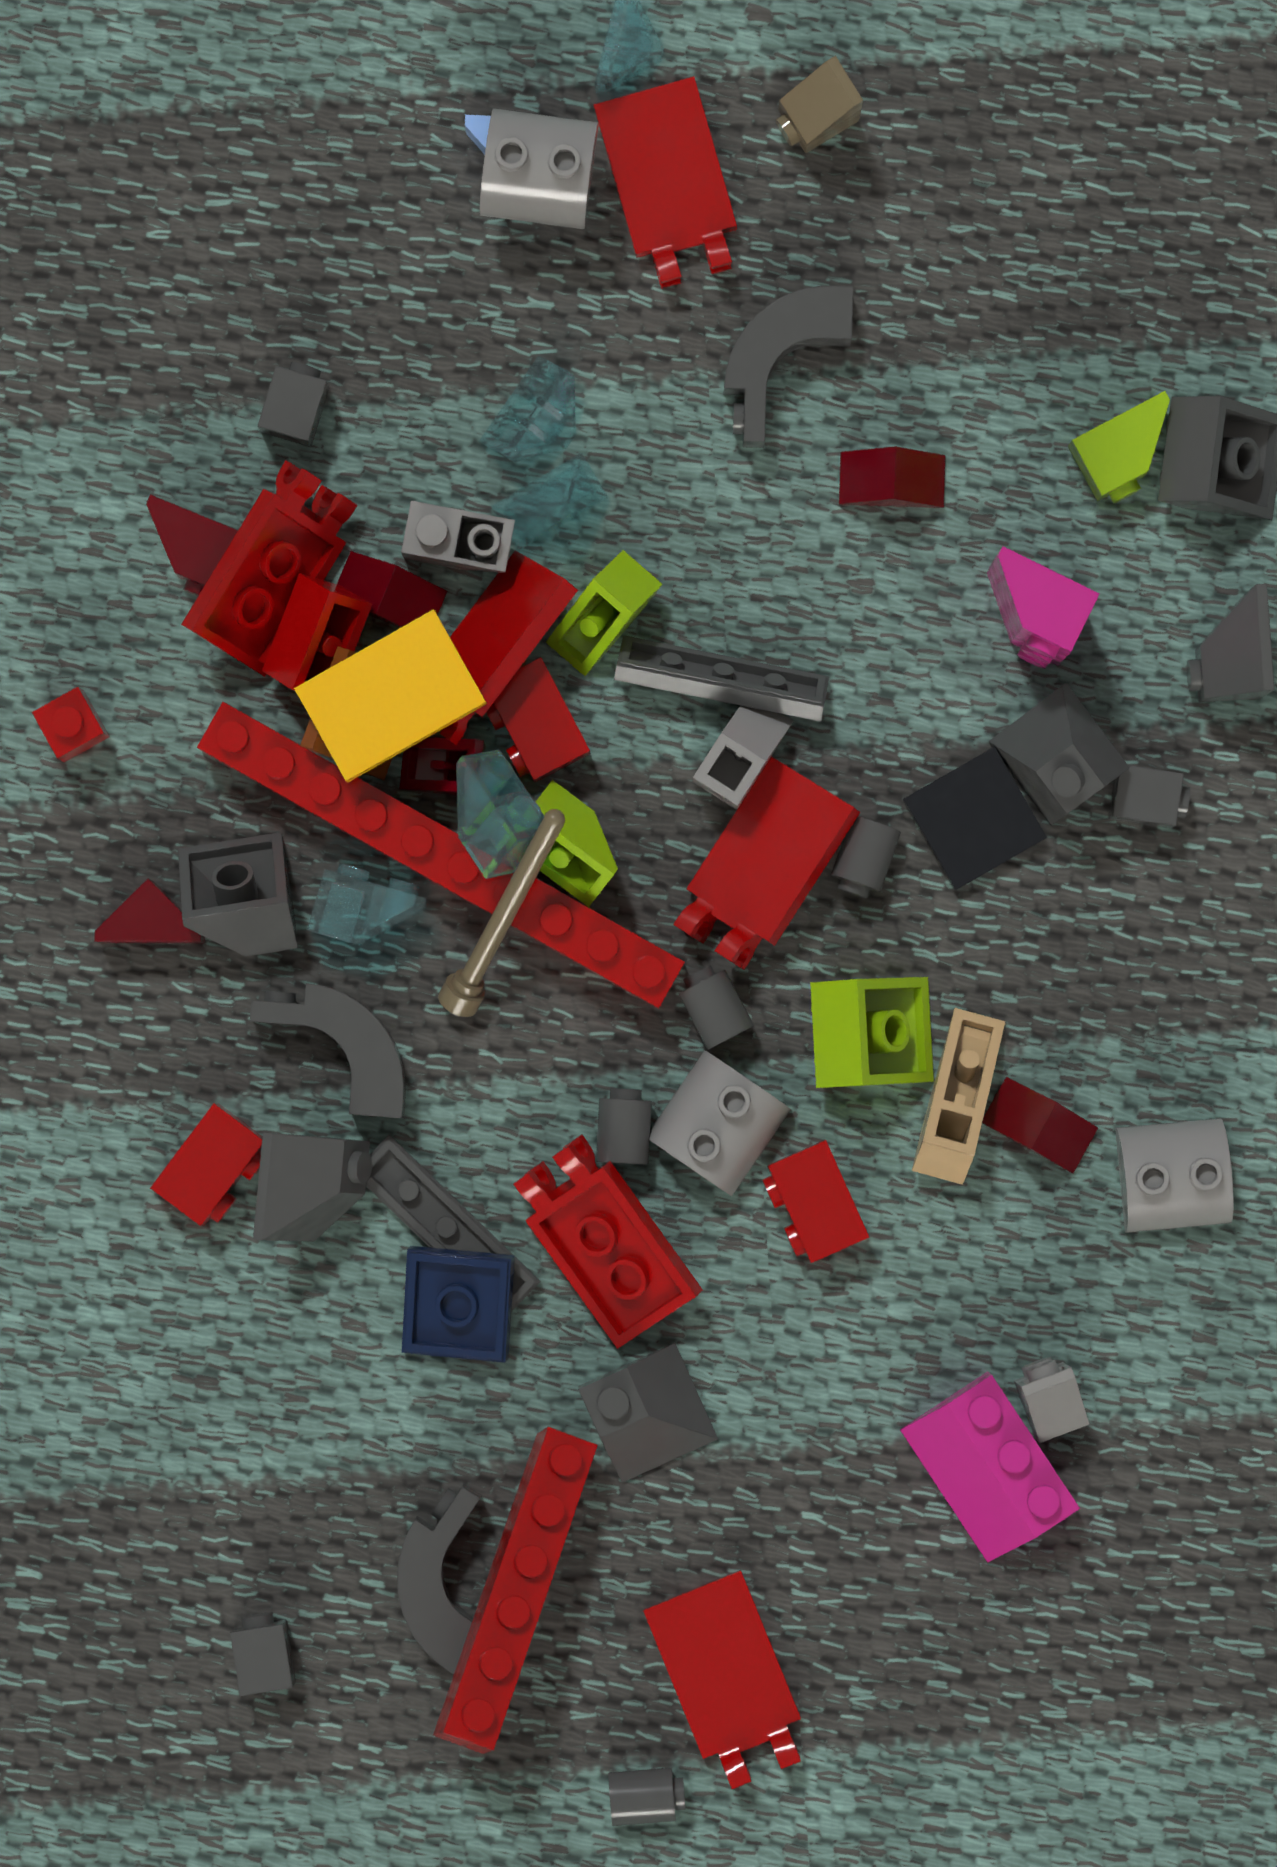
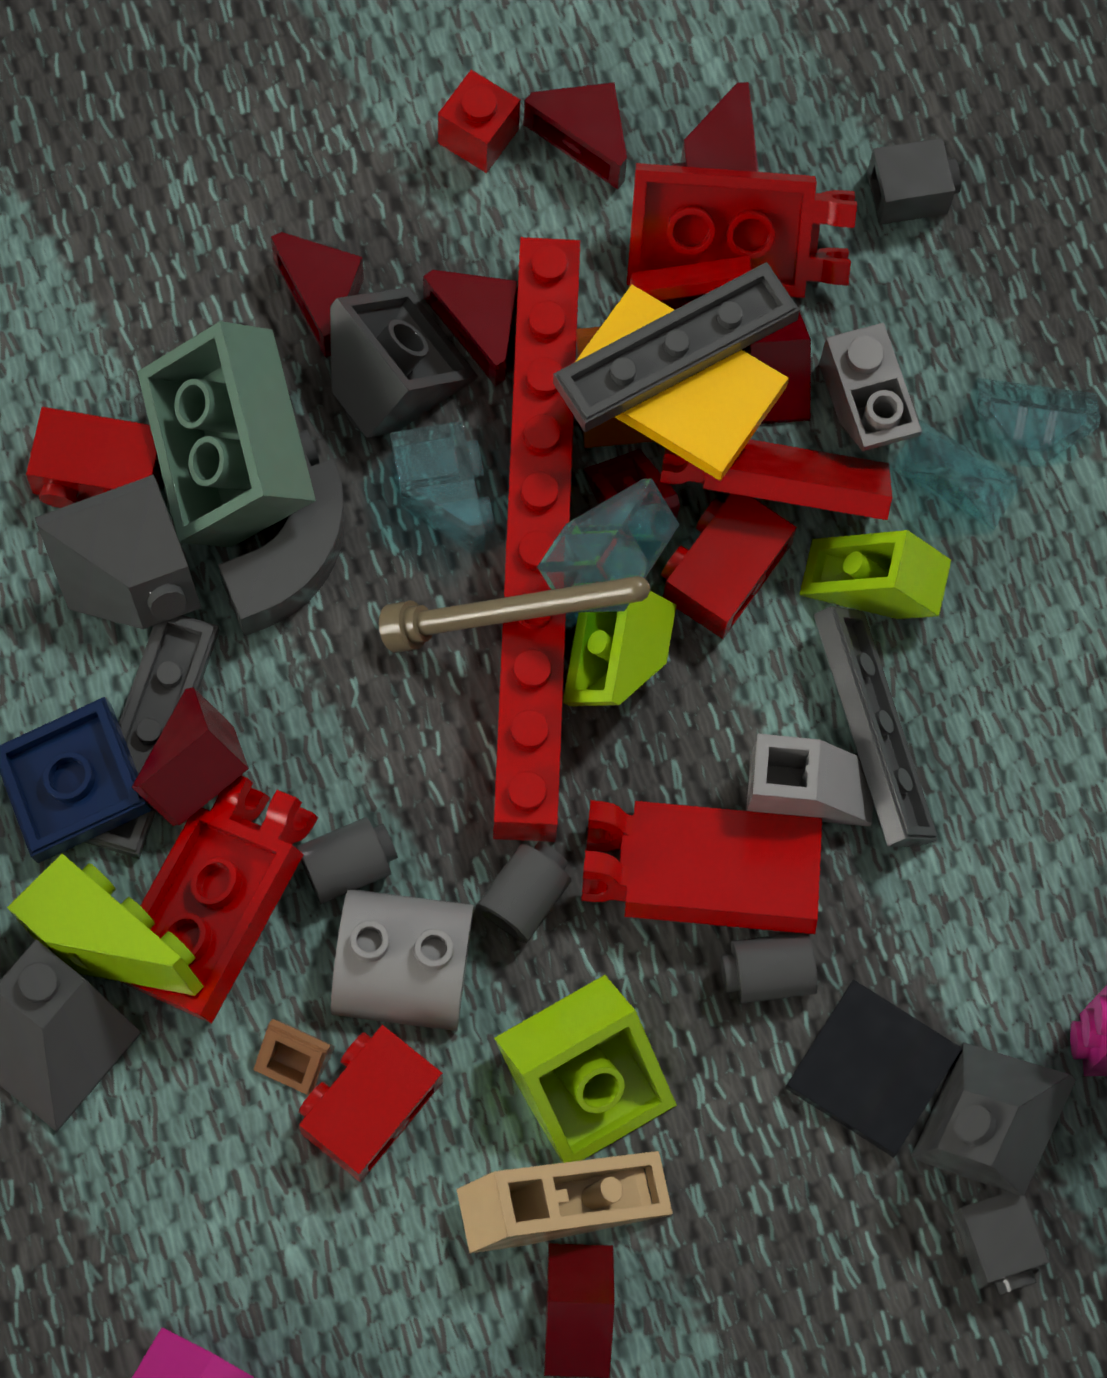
camera: 55 degrees right, 15 degrees down
(116, 640) = (582, 125): none -> dark red slope
(237, 808) = (477, 314): none -> dark red slope
(252, 1059) = (225, 435): none -> sand green brick
(367, 683) = (675, 346): none -> dark grey tile
(491, 1205) = (190, 760): none -> dark red slope
(585, 1347) = (96, 934): none -> lime slope
(750, 1239) = (292, 1056): none -> medium nougat slope

